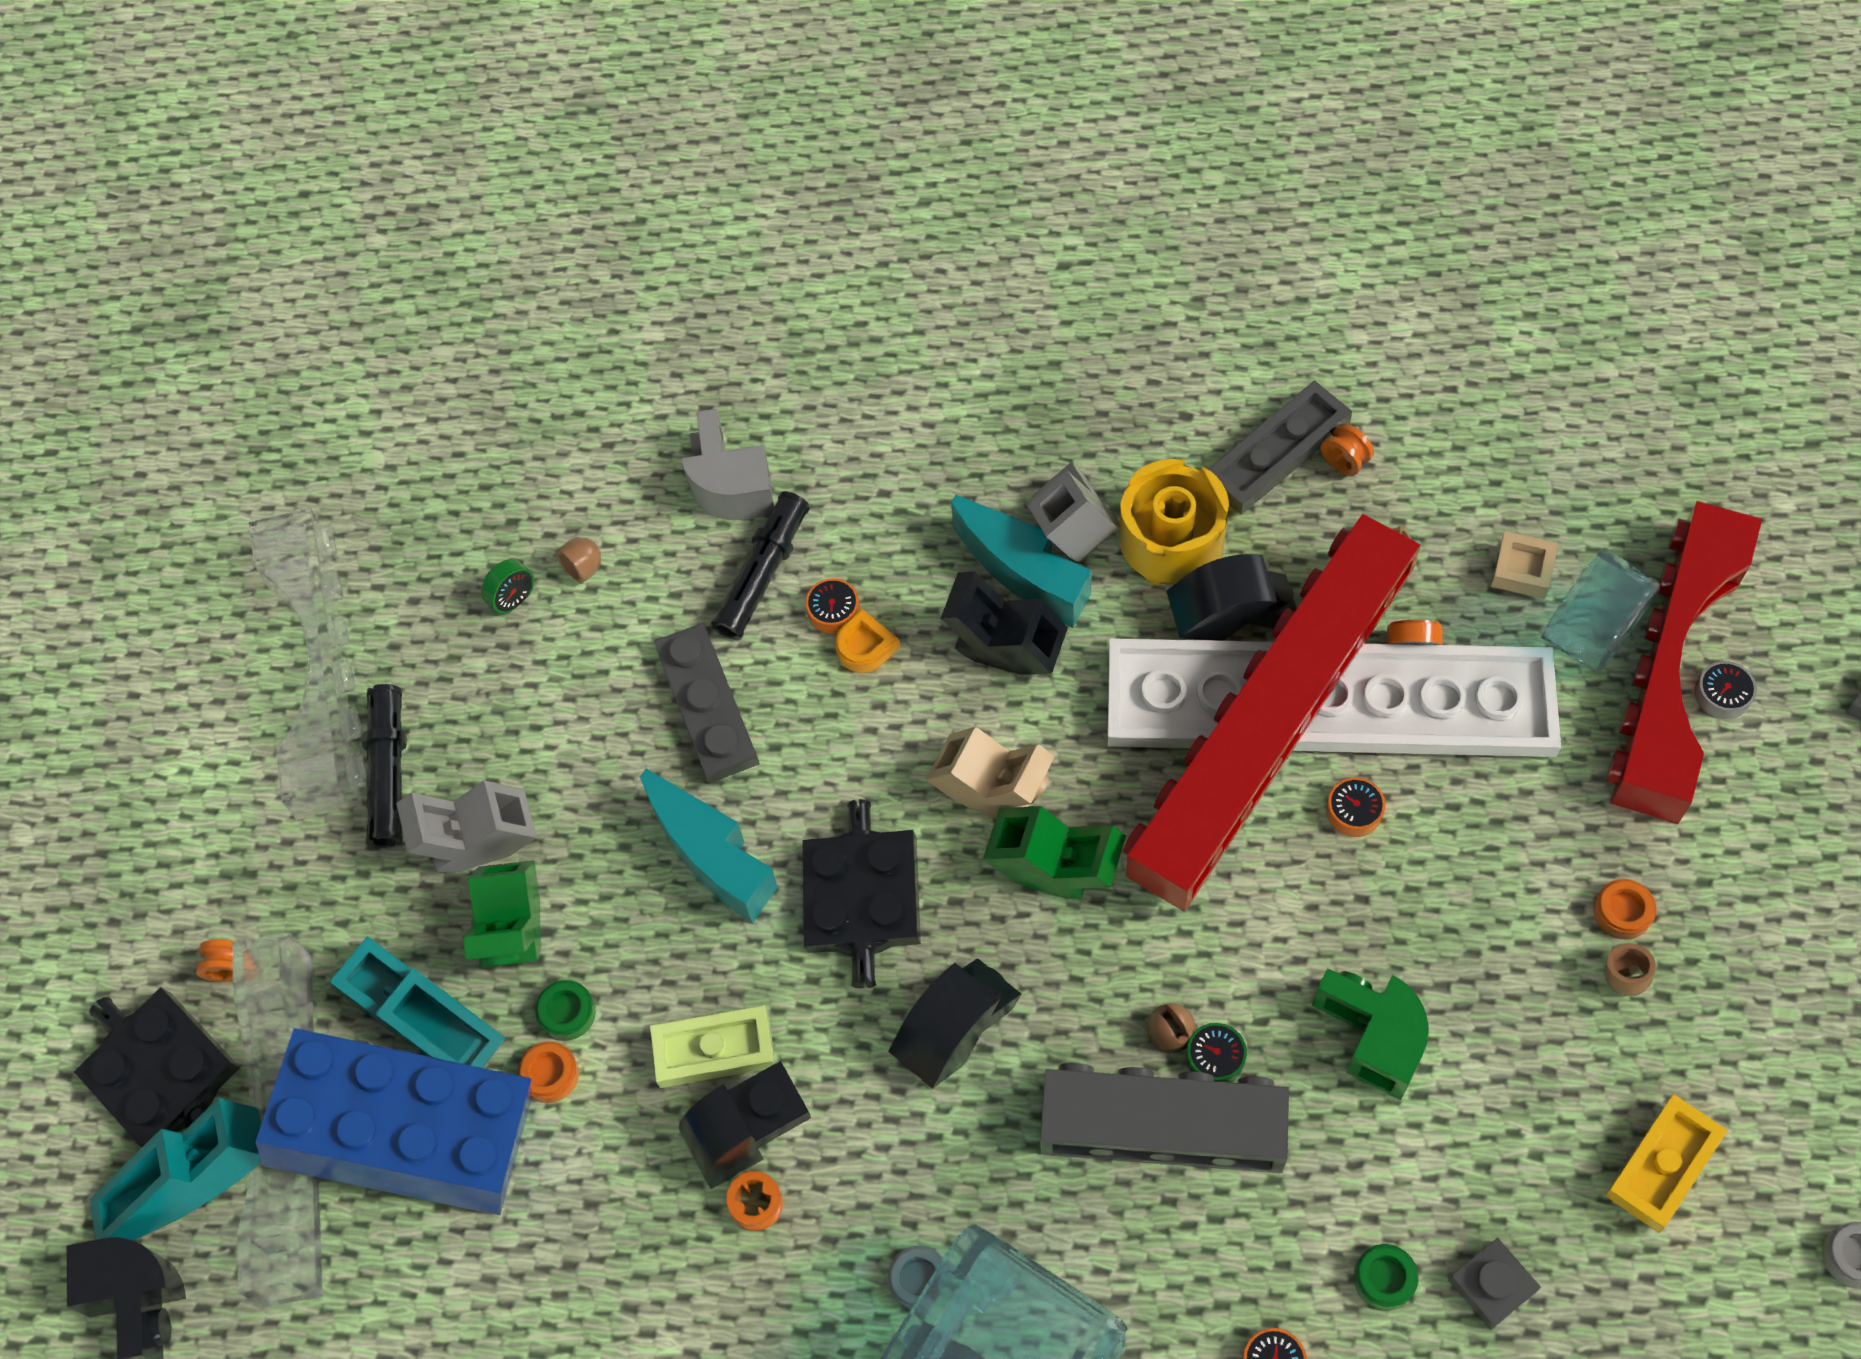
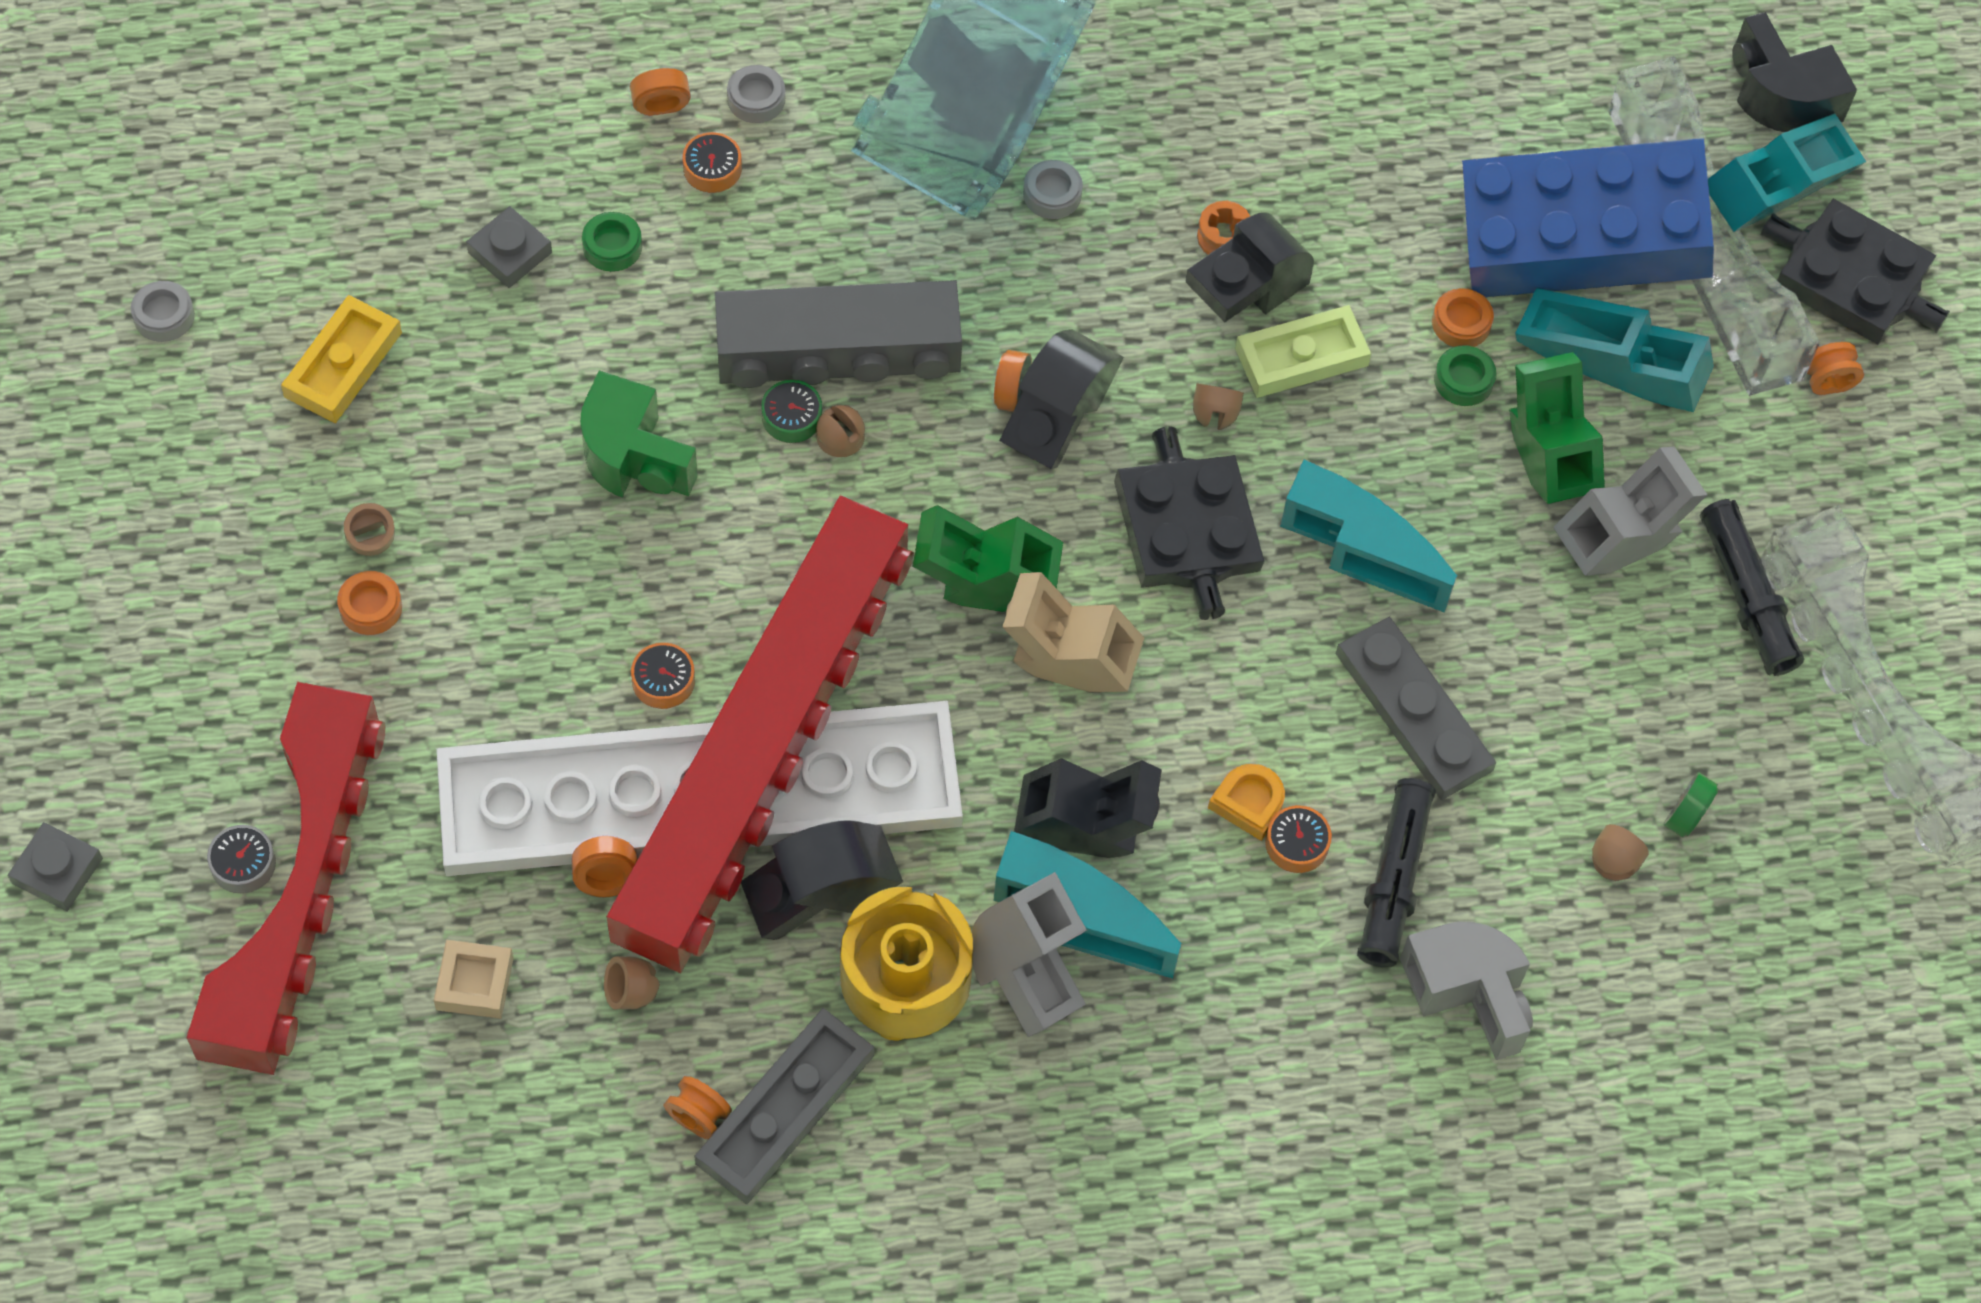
camera: 160 degrees right, 0 degrees up
(796, 1001) = (1218, 400): none -> medium nougat hinge
(999, 1047) = (1009, 376): none -> orange tile
(1601, 610) = (396, 895): clear light blue piece -> none

